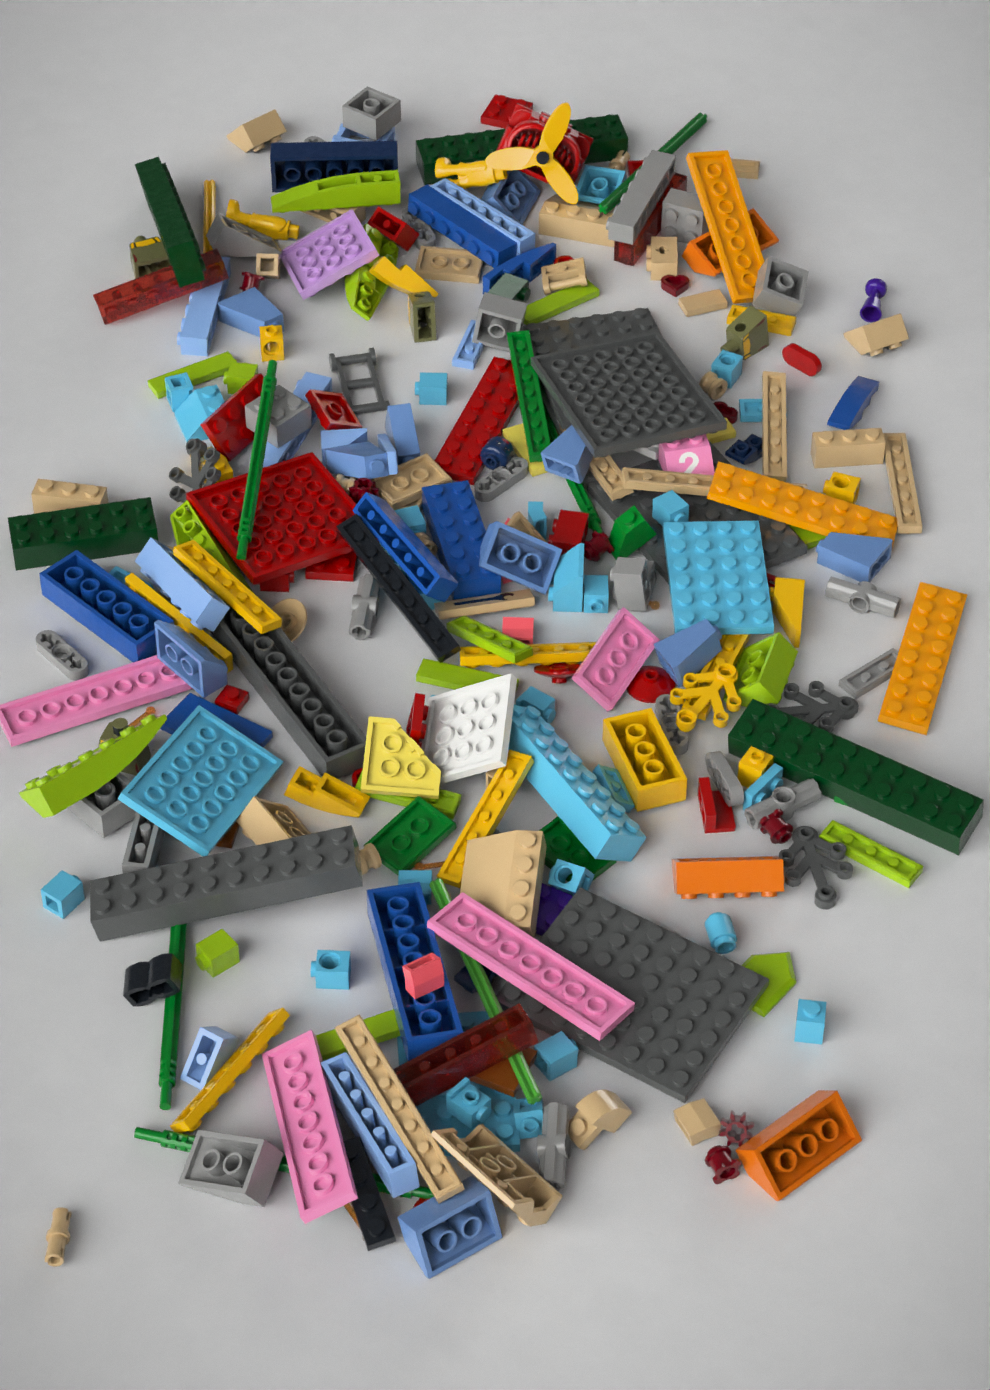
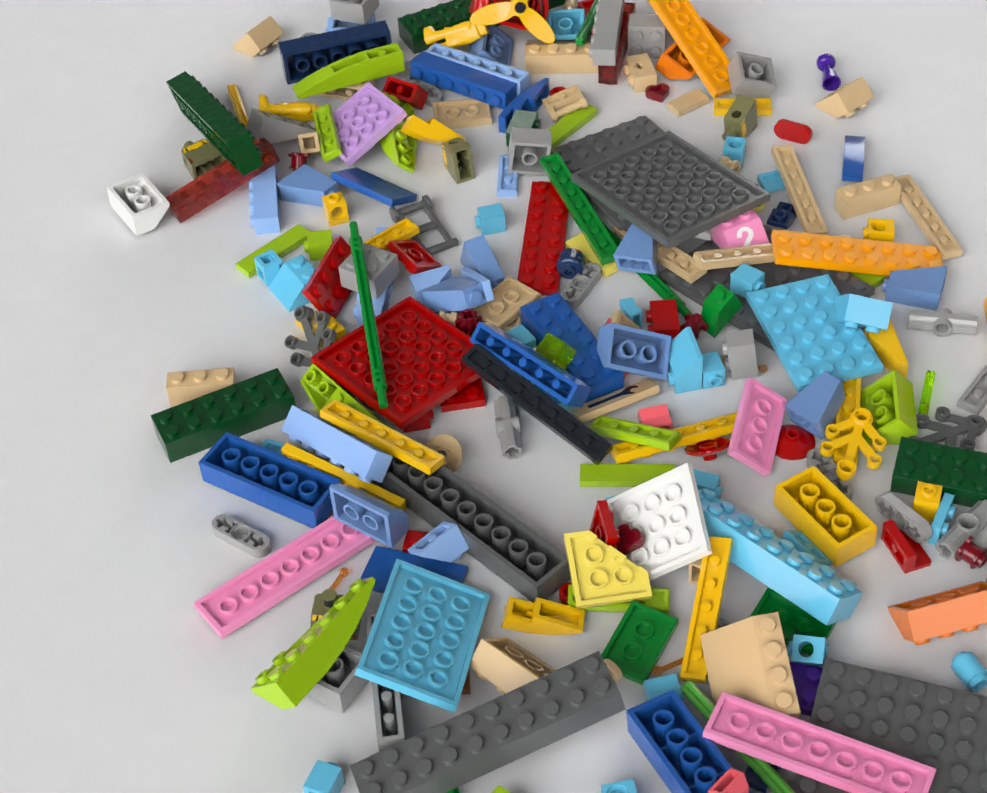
camera: 10 degrees left, 0 degrees up
(65, 293) = (138, 203): none -> white slope
(252, 703) = (441, 543): none -> light blue slope
(291, 257) = (327, 132): none -> lime tile
(321, 327) = (374, 187): none -> blue tile
(328, 381) = (400, 231): none -> yellow tile
(436, 738) = (630, 539): none -> dark red tile
(437, 539) = (556, 350): none -> clear neon green brick
(771, 567) = (863, 312): none -> medium azure slope
(809, 665) = (927, 392): none -> clear neon green tile

